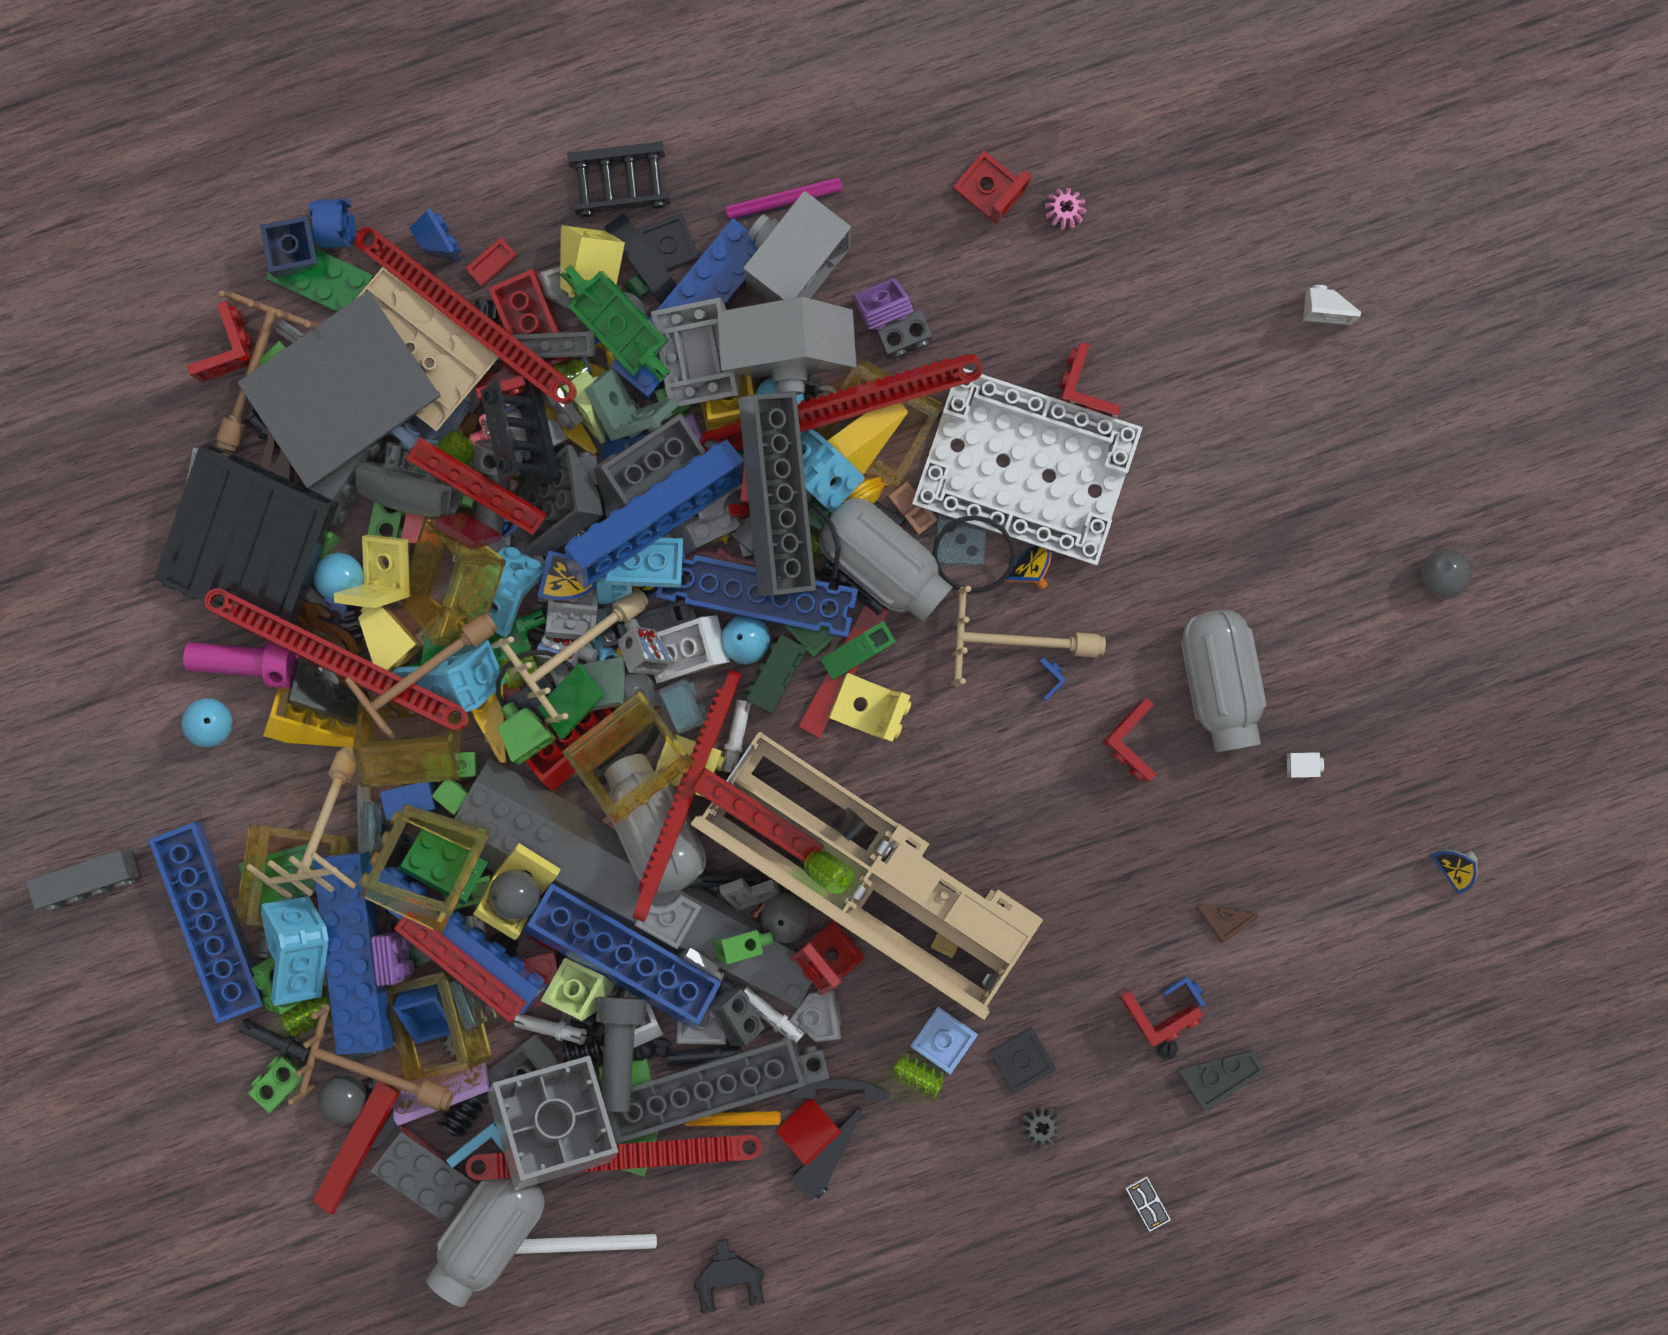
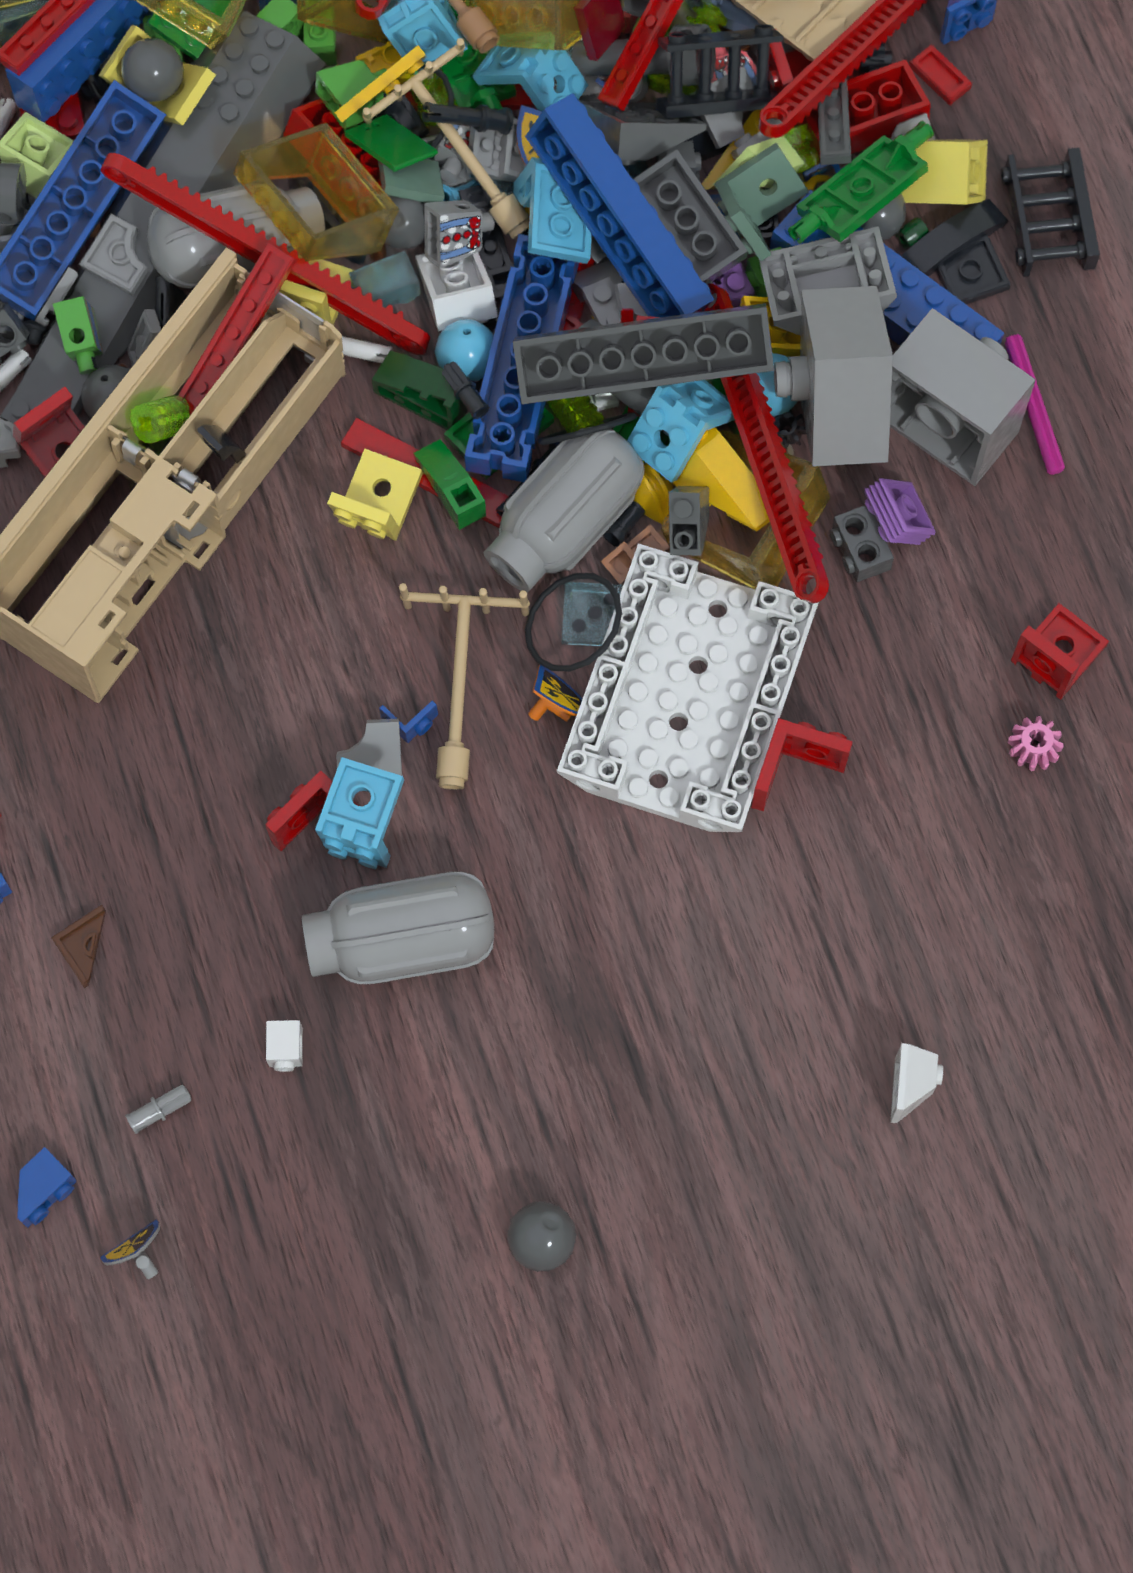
camera: 90 degrees right, 15 degrees down
(524, 702) = (385, 82): none -> yellow wing
(555, 627) = (480, 118): none -> black pin
(794, 636) = (465, 390): none -> black axle
(897, 464) = (688, 519): none -> dark grey slope
(1083, 704) = (378, 746): none -> light grey tile
(1152, 712) = (359, 829): none -> medium azure bracket
(1351, 856) = (158, 1108): none -> light grey axle
(1410, 938) = (41, 1185): none -> blue slope

